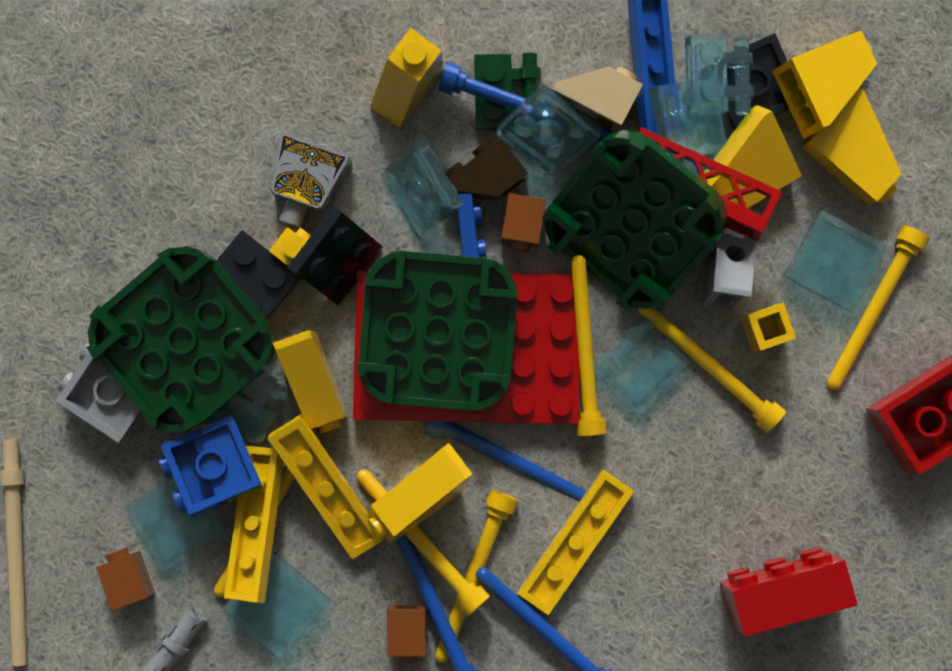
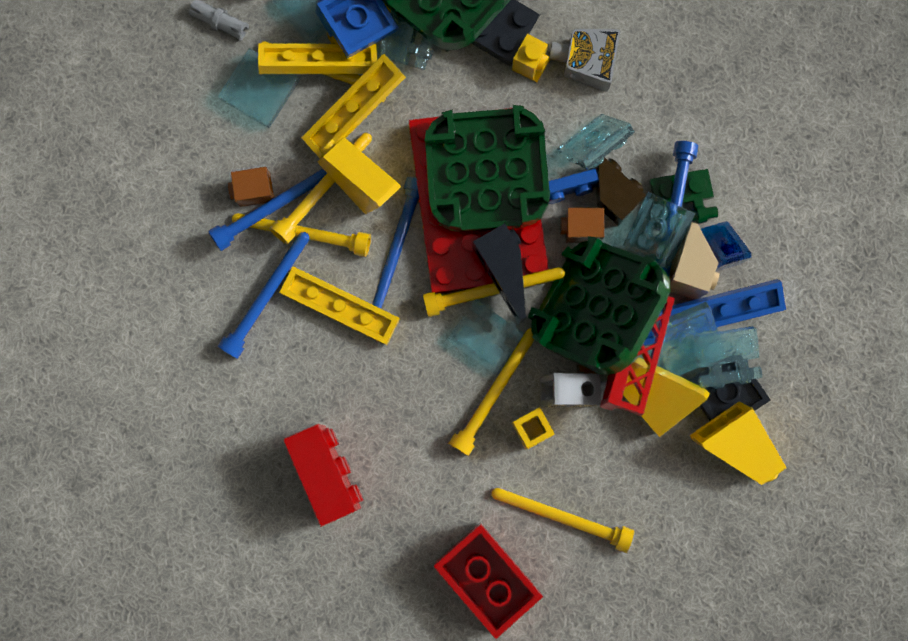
camera: 90 degrees right, 5 degrees down
(311, 380) = (434, 82): yellow slope -> none
(334, 256) = (531, 84): black plate -> none
(407, 77) = (680, 115): yellow slope -> none
(560, 329) = (502, 261): none -> black slope
(575, 52) = (726, 245): none -> clear blue slope
(835, 261) = (595, 478): clear light blue plate -> none
(857, 152) = (688, 479): yellow slope -> none

